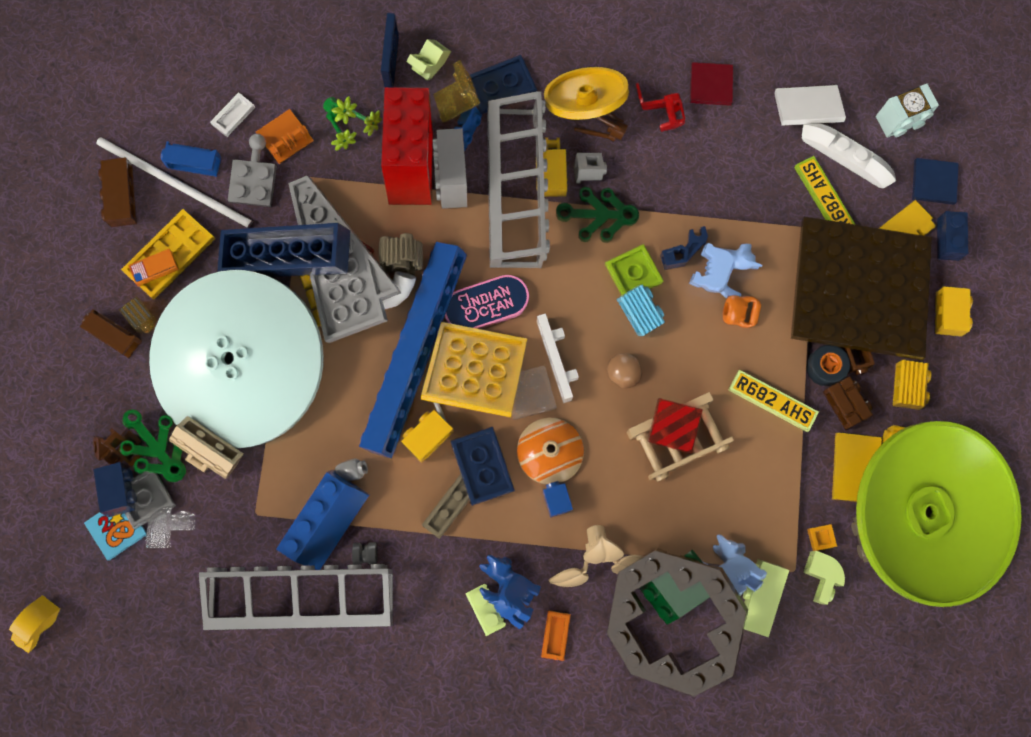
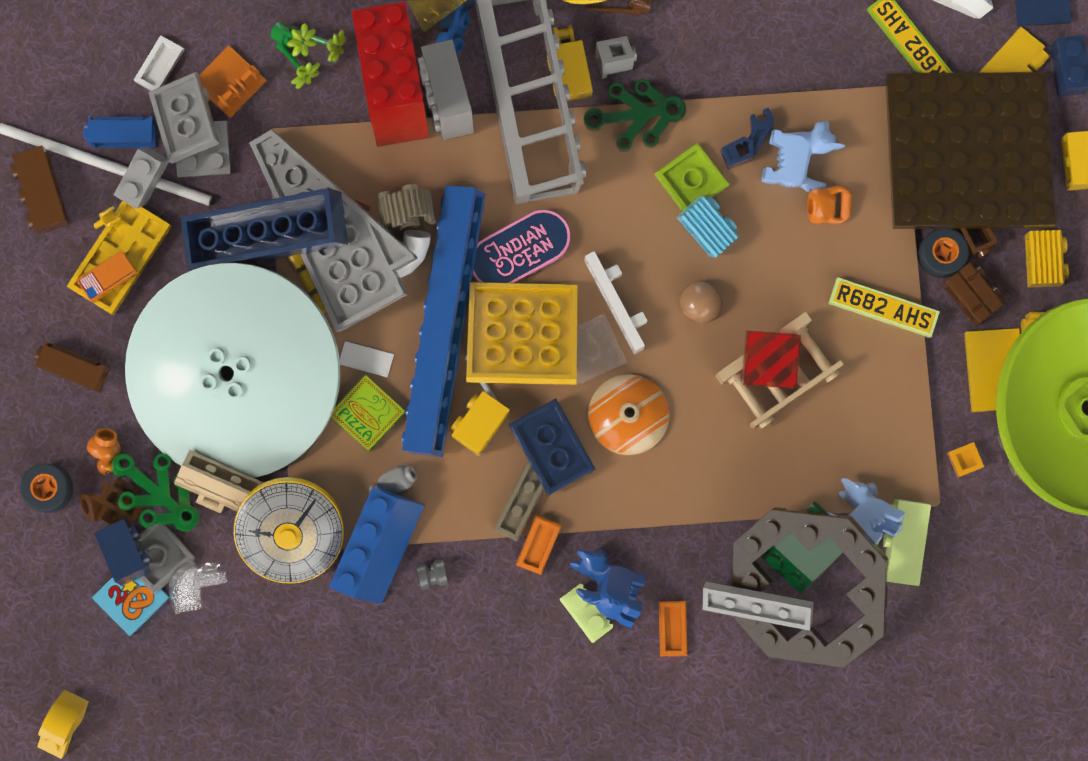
camera: 10 degrees left, 5 degrees up
(59, 423) = (36, 485): none -> black wheel
(121, 401) = (105, 448): none -> orange animal
(139, 315) = (101, 339): clear yellow brick -> none
(164, 222) = (107, 218): none -> yellow hand
(197, 194) = (141, 177): none -> light grey brick
(240, 156) = (183, 119): none -> light grey tile
(253, 495) = (289, 530): none -> light grey dish
(296, 619) = (369, 664): light grey window -> none
(338, 412) = (367, 413): none -> lime tile
(346, 369) = (366, 359): none -> white sticker
(457, 544) = (538, 544): none -> orange tile
(557, 499) = (647, 470): blue brick -> none
(597, 551) = (705, 522): tan plant -> none
(630, 630) = (758, 606): none -> light grey plate
(828, 571) = (977, 497): yellowish green brick -> none

